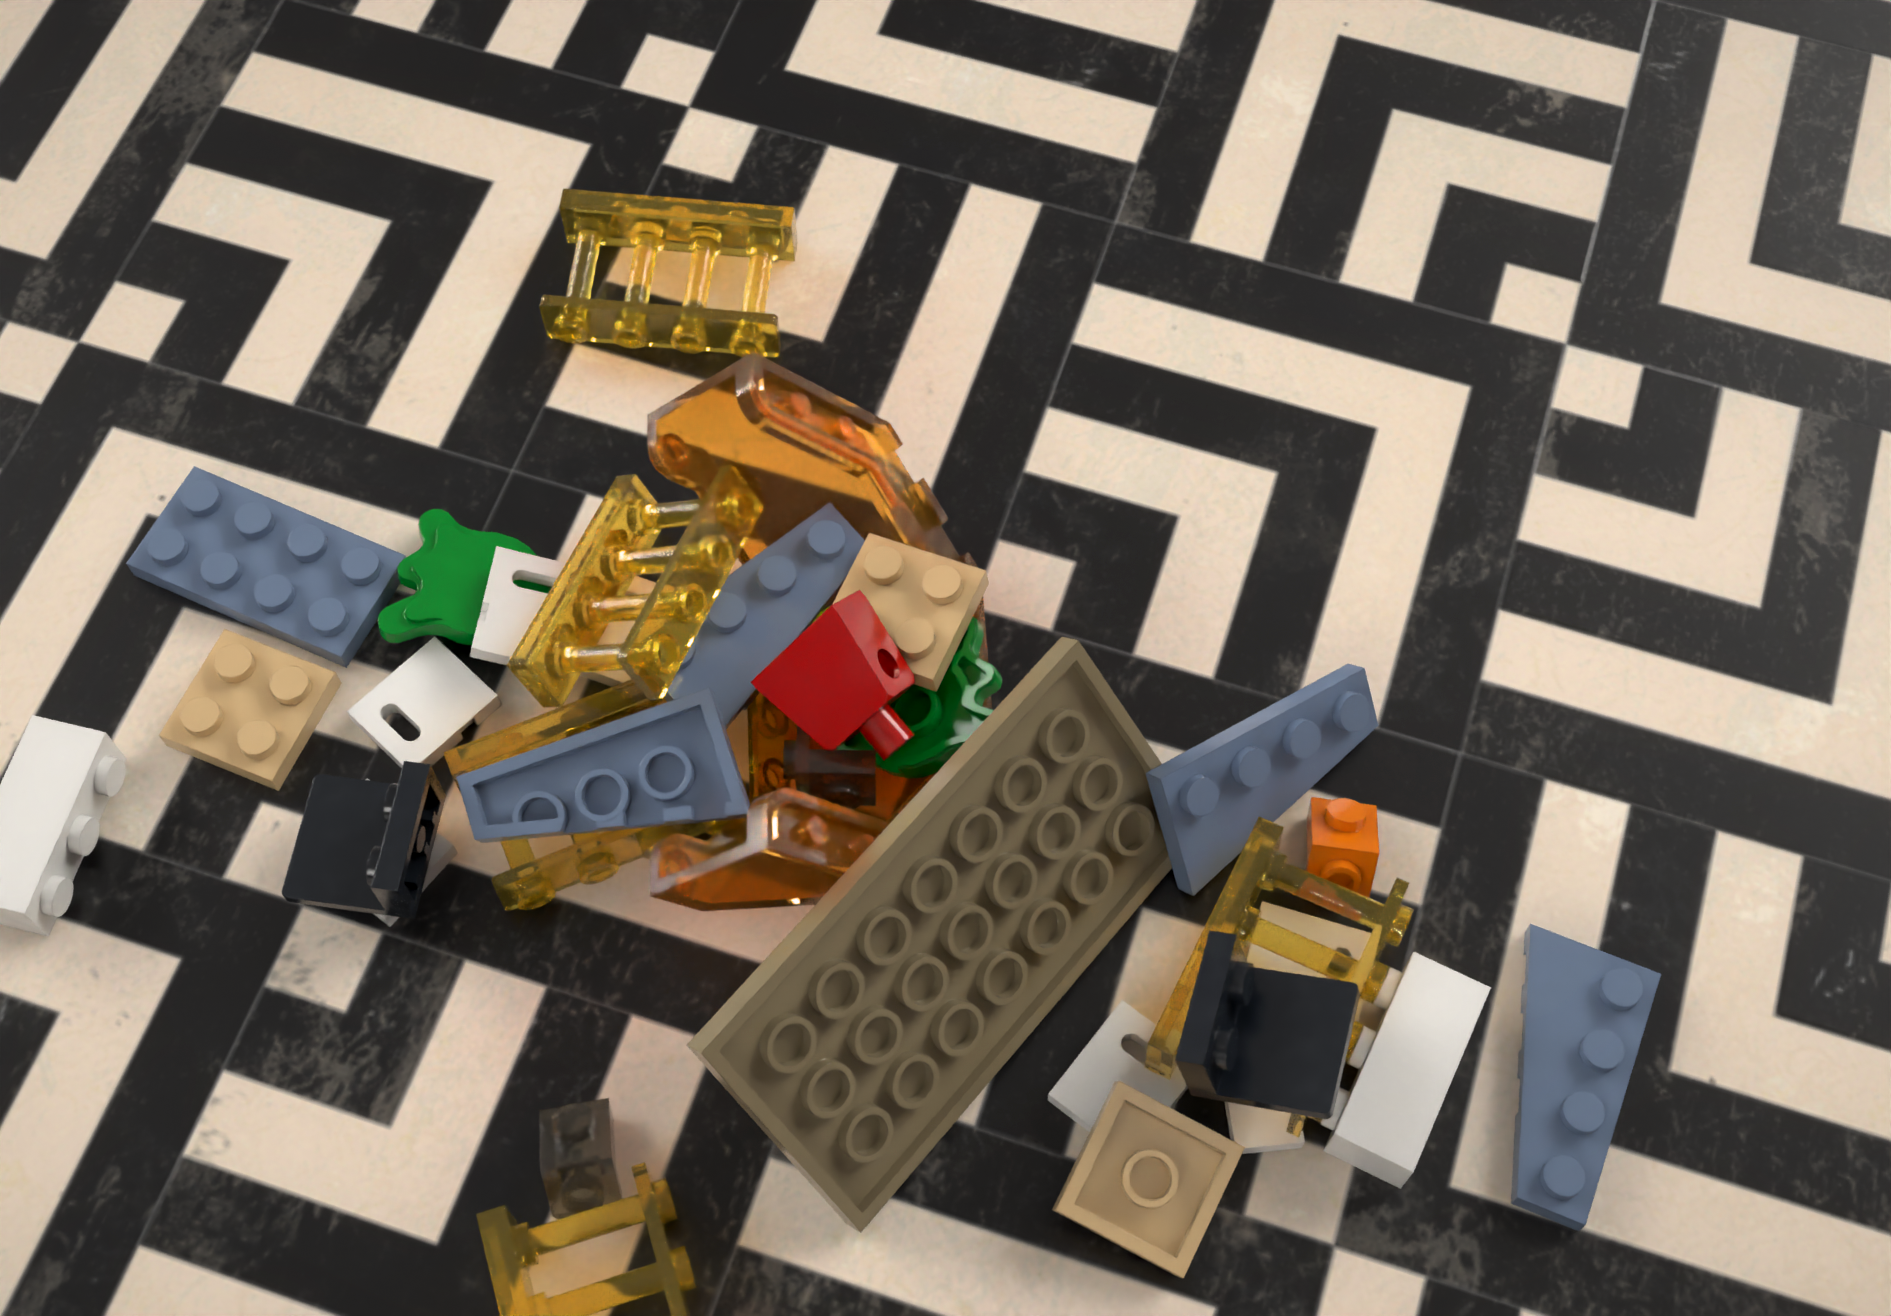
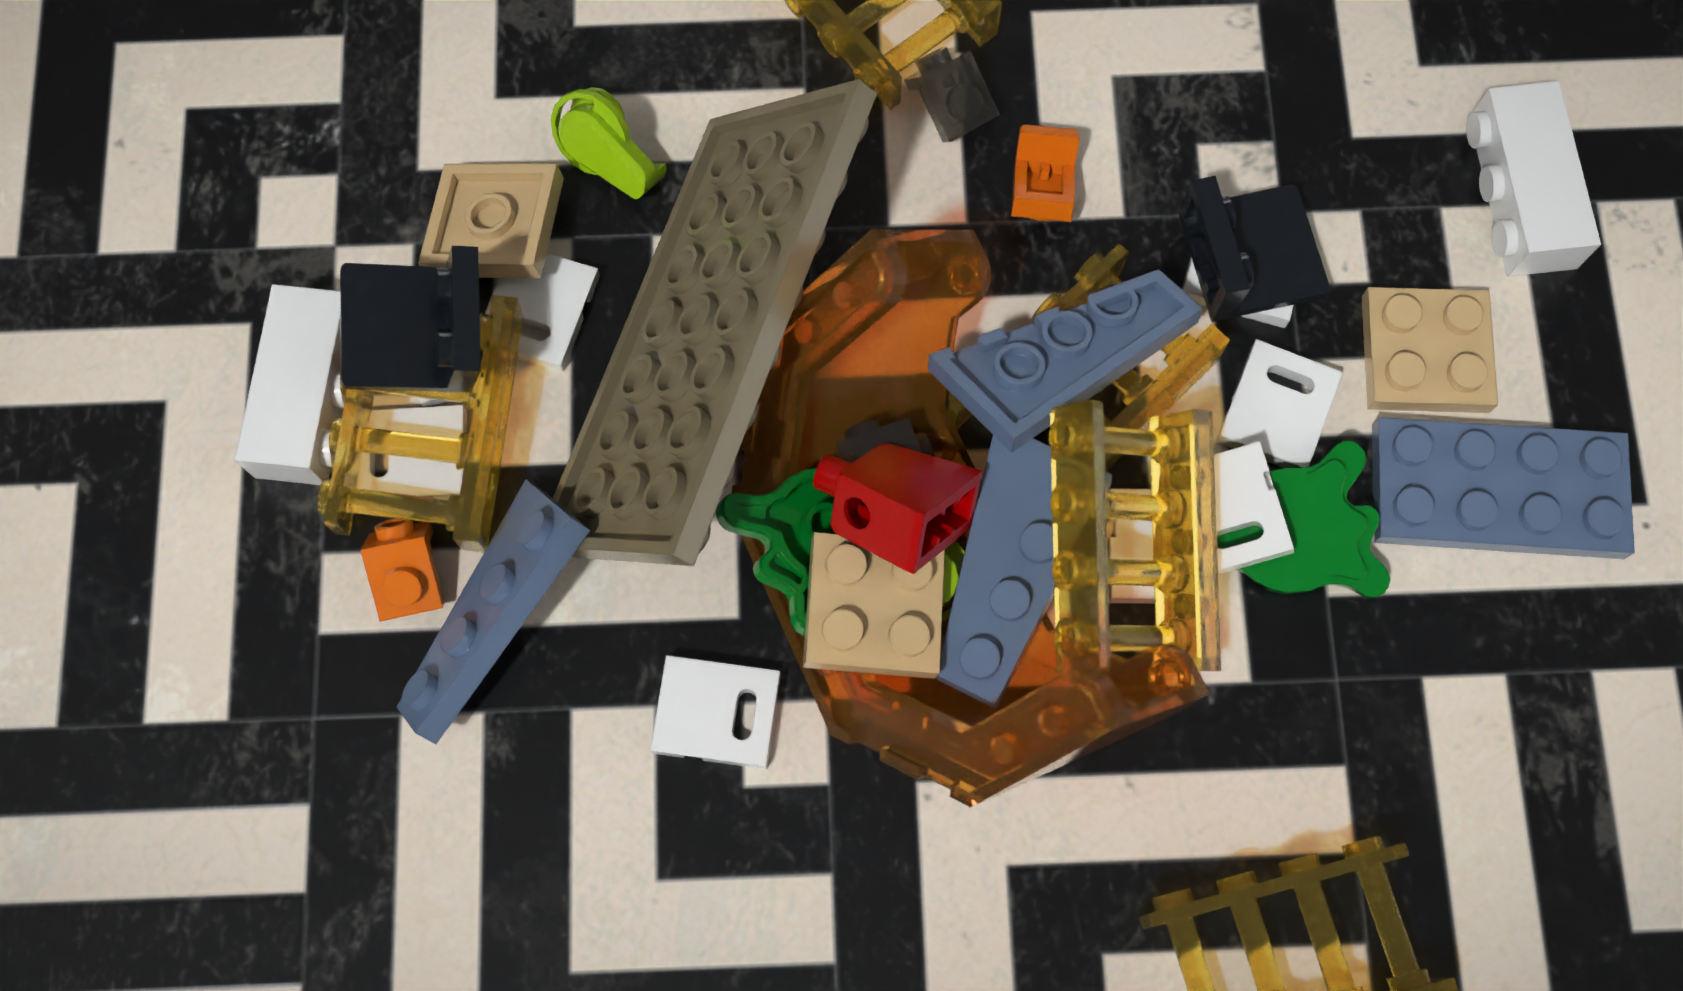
camera: 160 degrees right, 10 degrees up
(530, 1010) = (1045, 173): none -> orange bracket
(1000, 1236) = (599, 142): none -> lime piece
(1095, 615) = (700, 711): none -> white piece
(1573, 1068) = (156, 465): sand blue wing -> none

